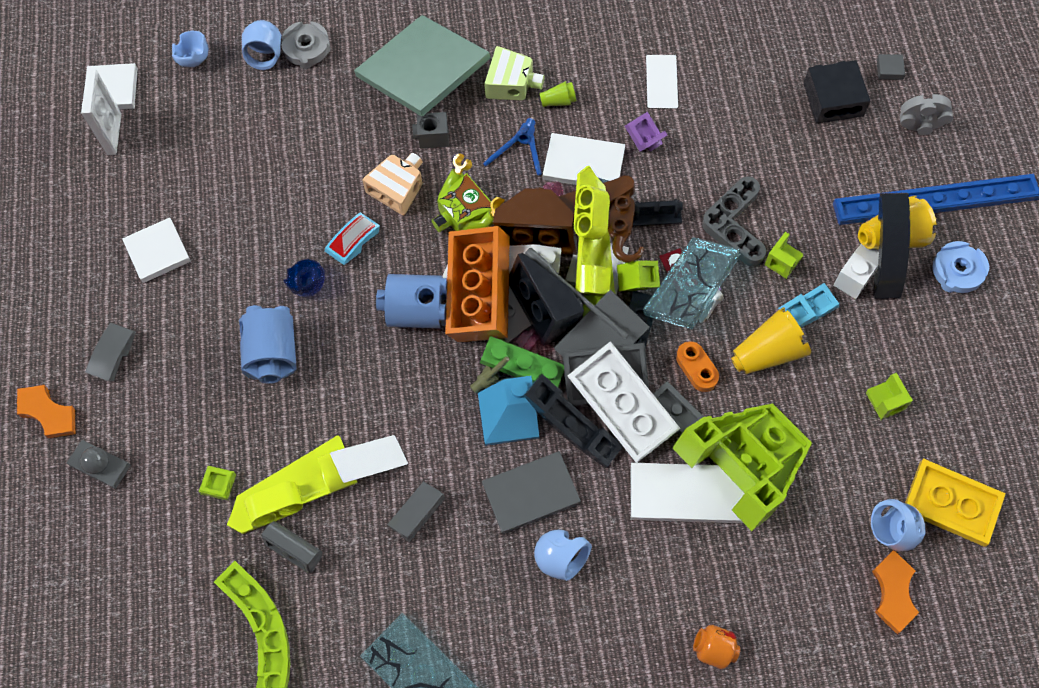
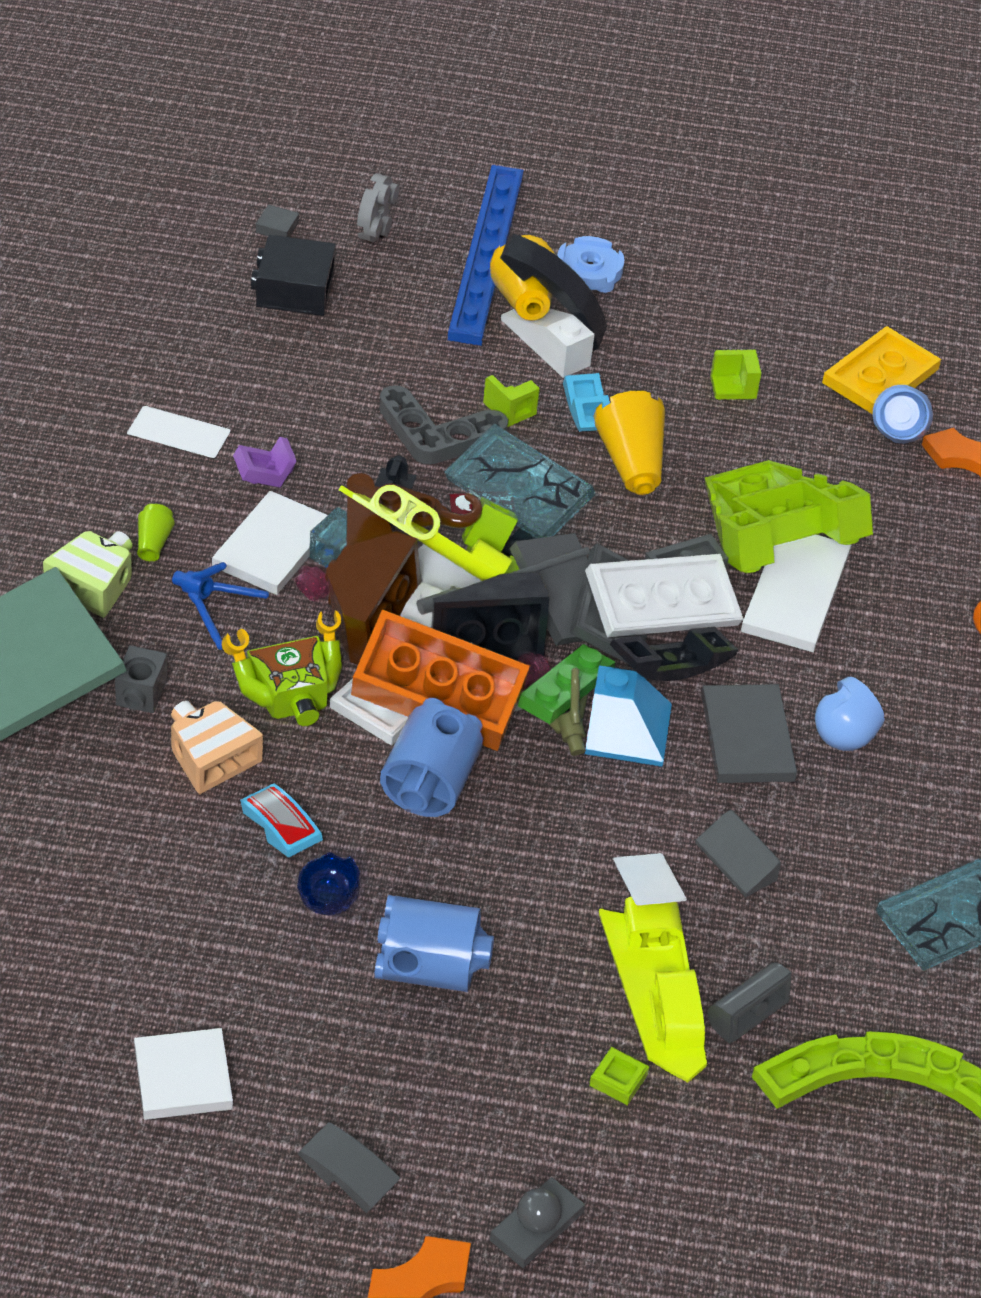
camera: 80 degrees left, 20 degrees down
(696, 365) = (629, 527): orange plate -> none

